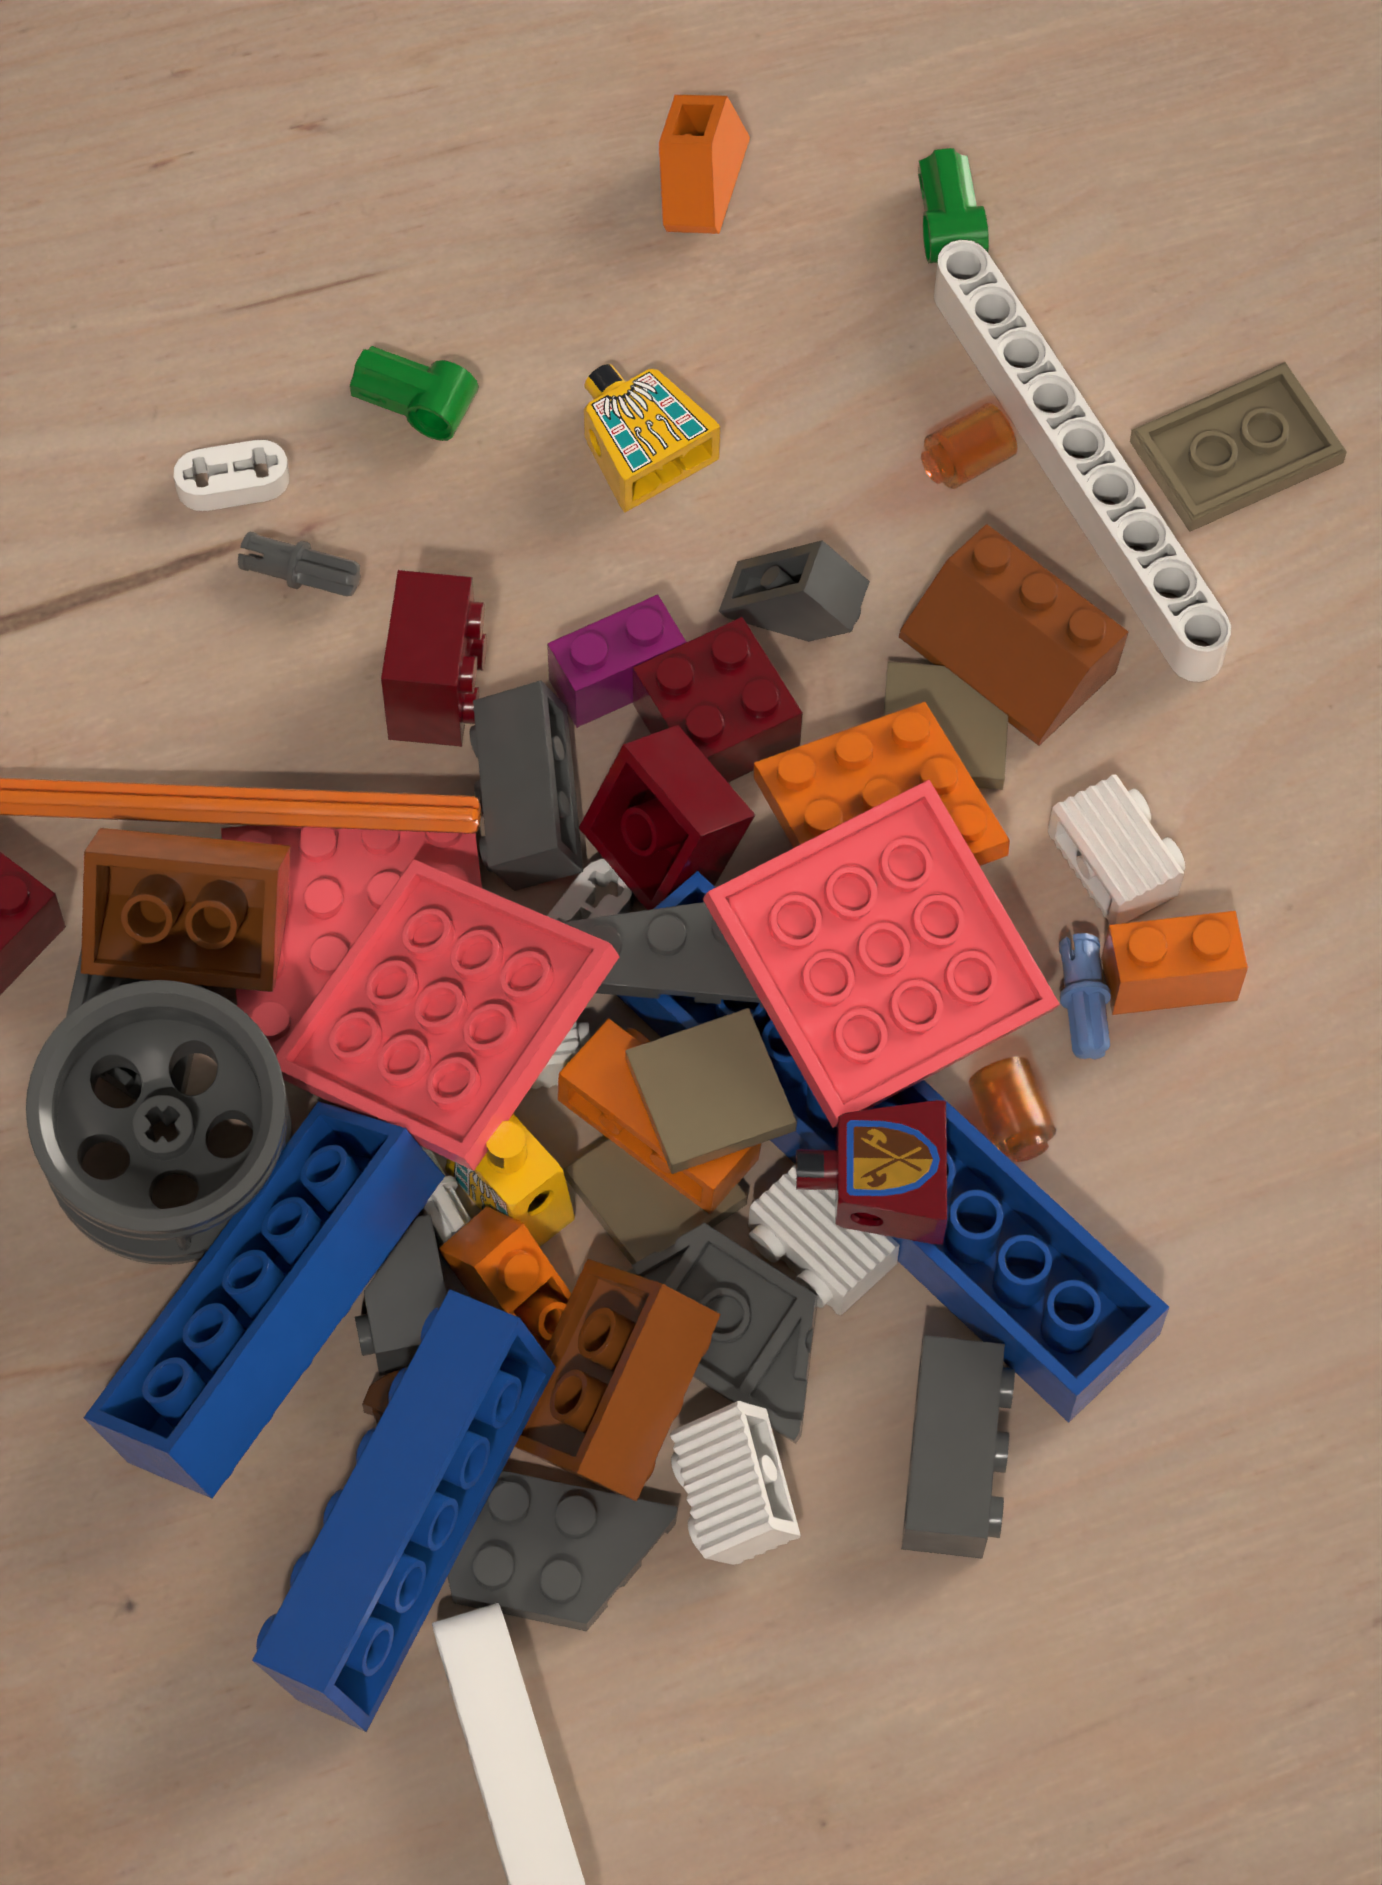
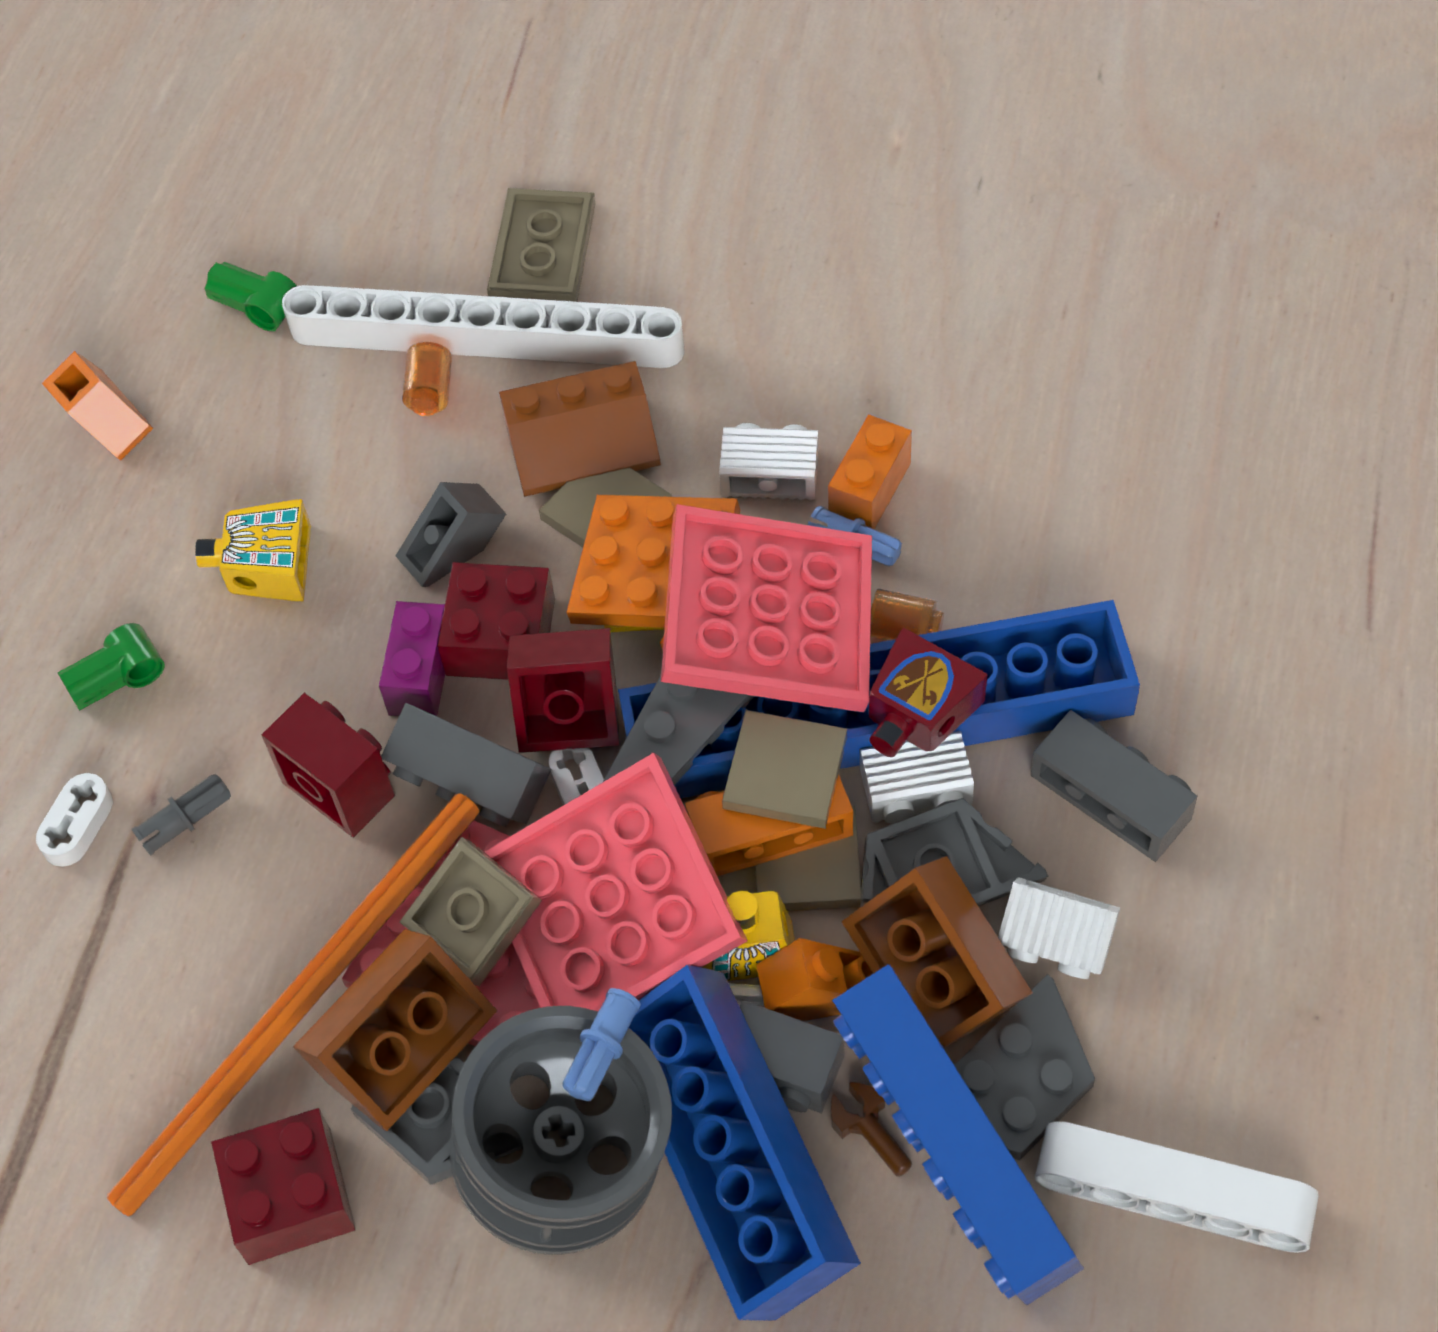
camera: 50 degrees left, 5 degrees down
(239, 1094) = (601, 1044): none -> medium blue axle
(352, 894) = (471, 909): none -> dark tan tile

